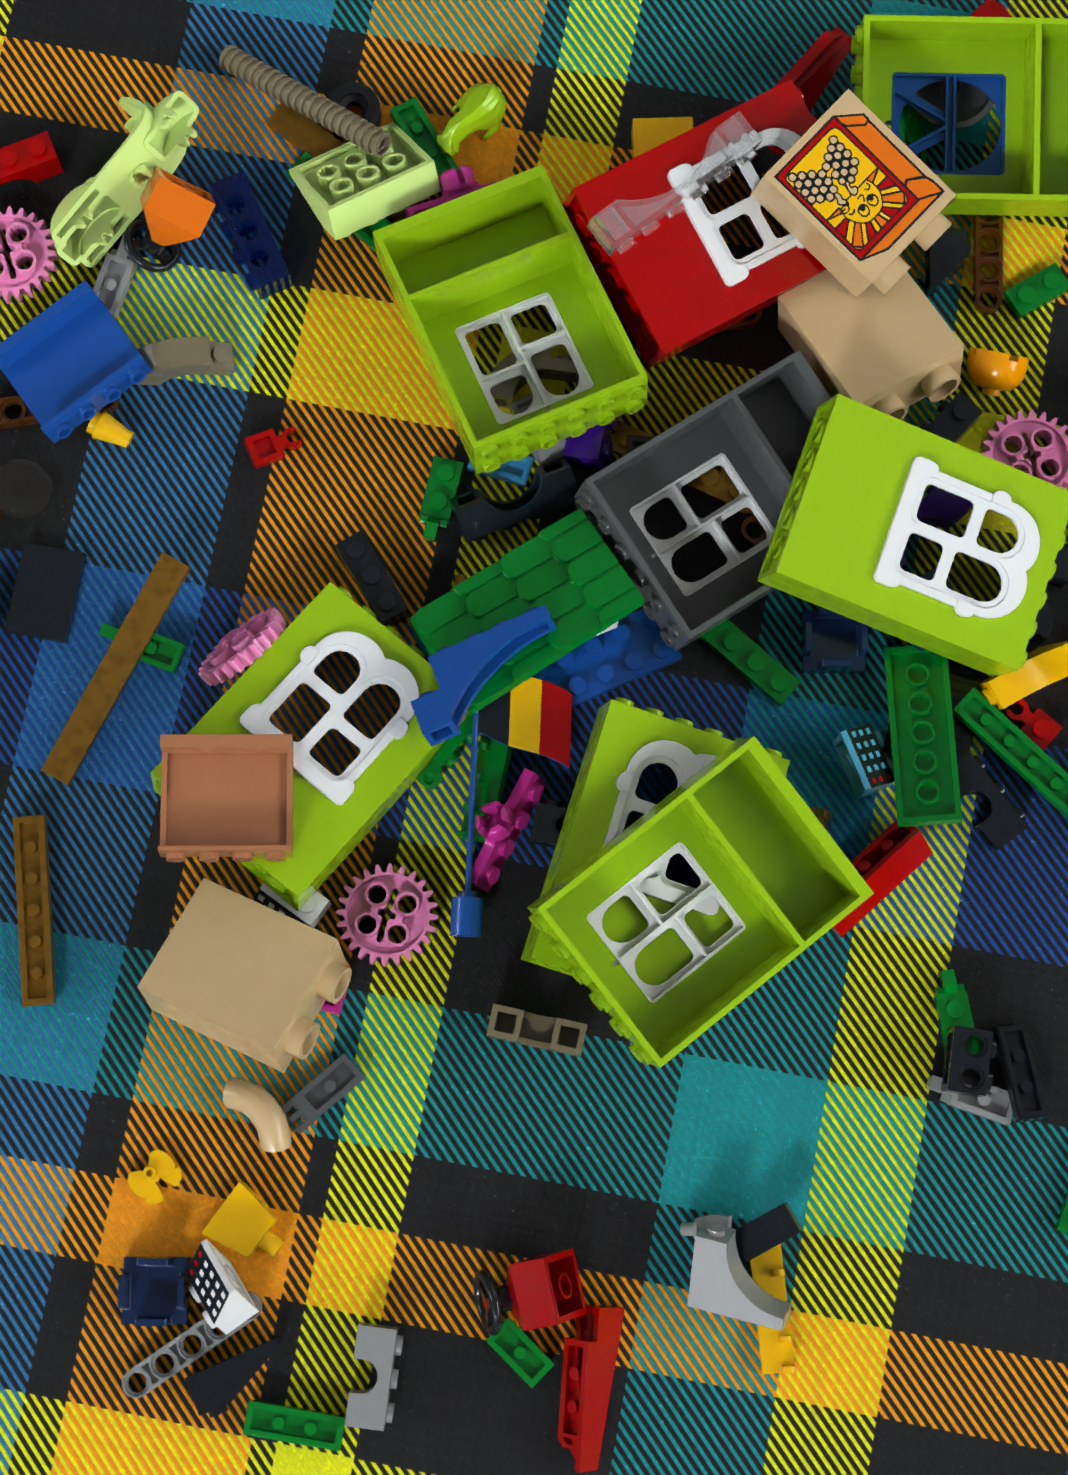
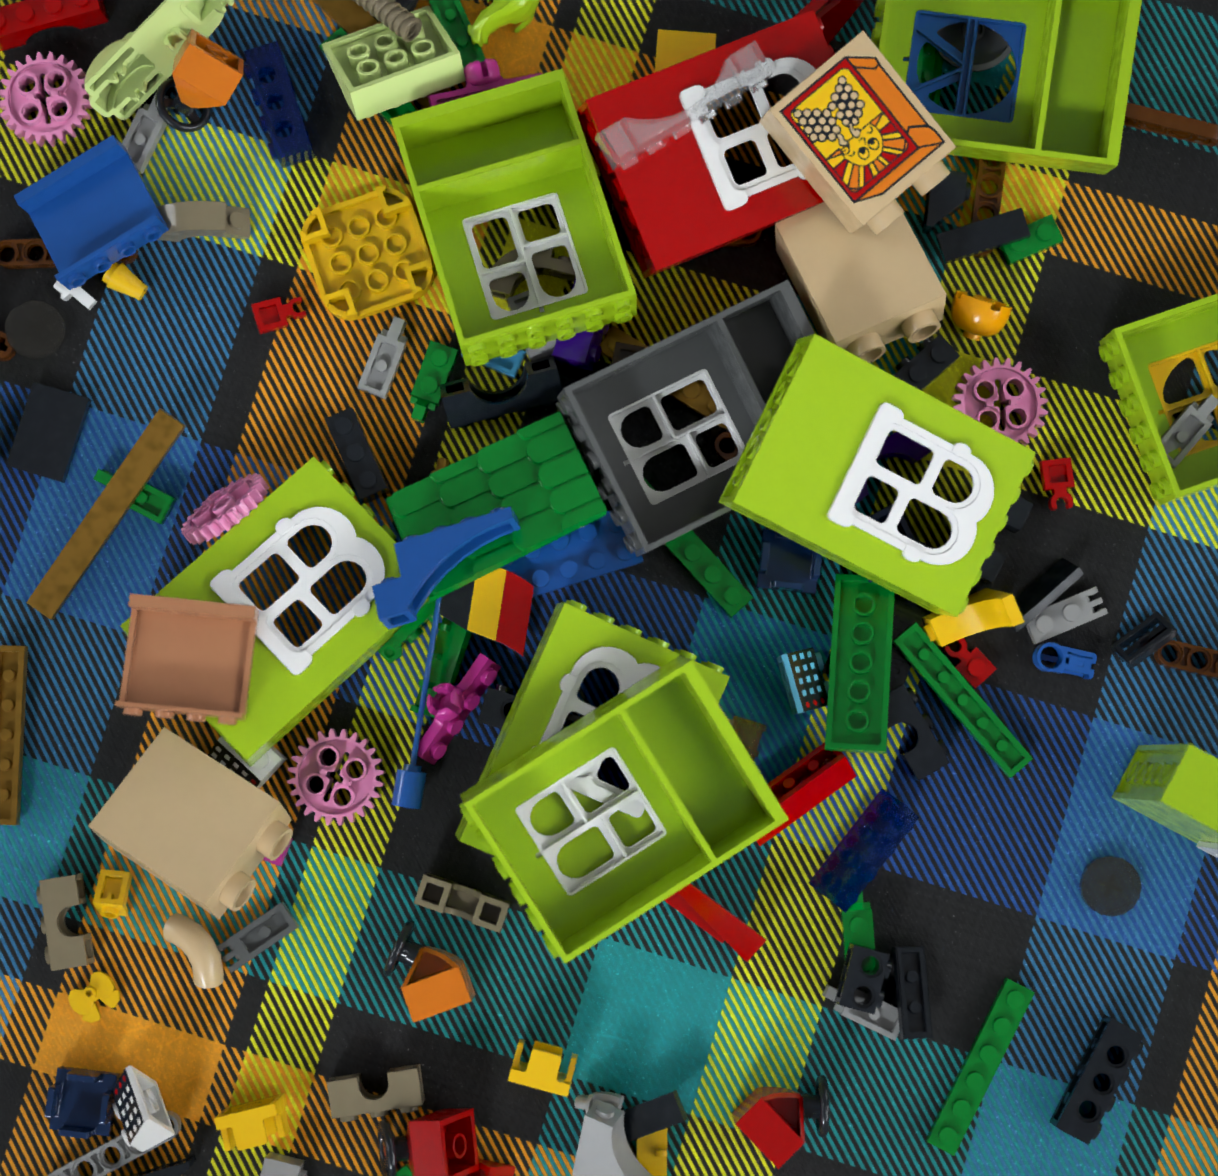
camera: 10 degrees right, 5 degrees up
(62, 446) = (78, 293): none -> white piece
(106, 1073) = (64, 947): none -> dark tan arch
(163, 1064) = (112, 893): none -> yellow bracket
(244, 1223) = (171, 1050): yellow torso -> none
(341, 1289) = (252, 1122): none -> yellow panel
(359, 376) = (367, 254): none -> yellow tile
(388, 481) = (384, 360): none -> light grey hinge
(441, 1254) = (351, 1099): none -> dark tan arch
(516, 1113) = (435, 977): none -> orange piece
(643, 1194) = (543, 1068): none -> yellow panel
(803, 1018) = (716, 920): none -> red wedge
(897, 1219) = (776, 1118): none -> red piece
(950, 929) = (864, 850): none -> clear blue brick
(989, 290) = (983, 235): none -> black tile

